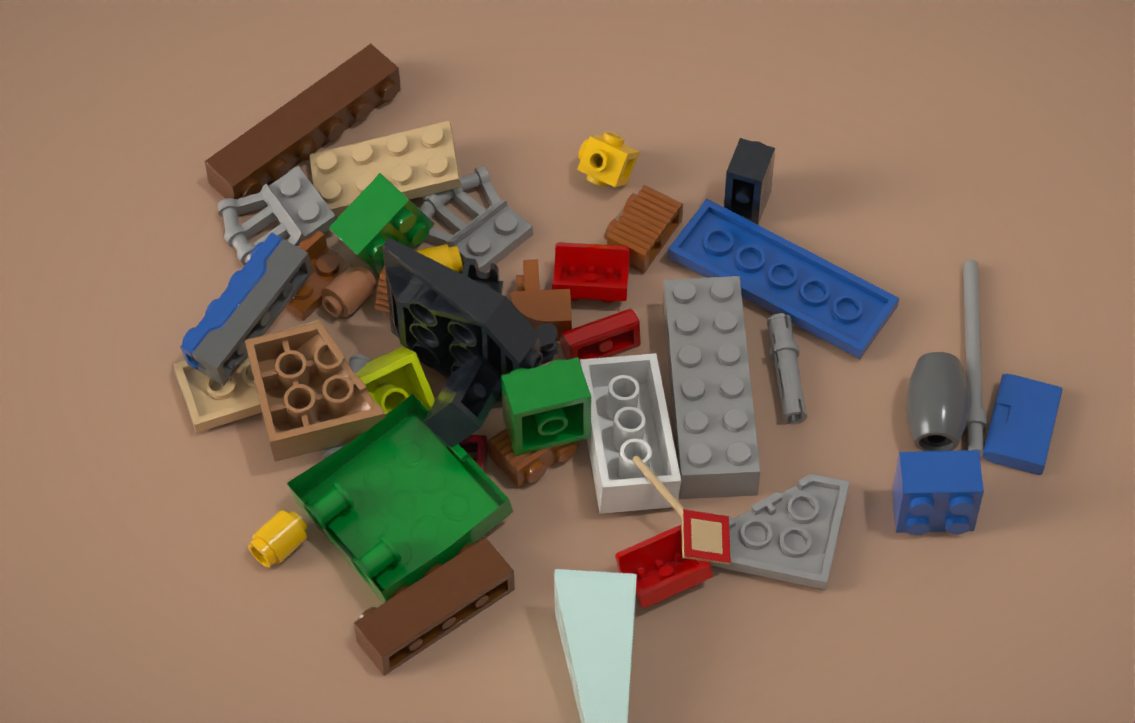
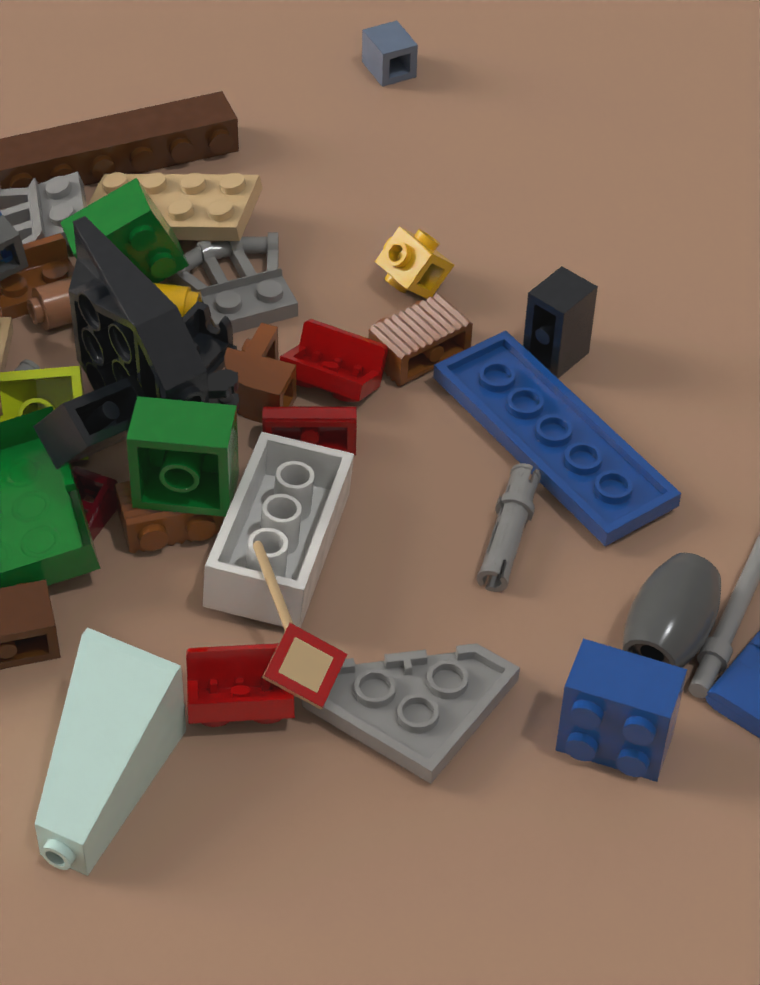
camera: 20 degrees right, 10 degrees down
(710, 388) = (402, 519): light grey brick -> none

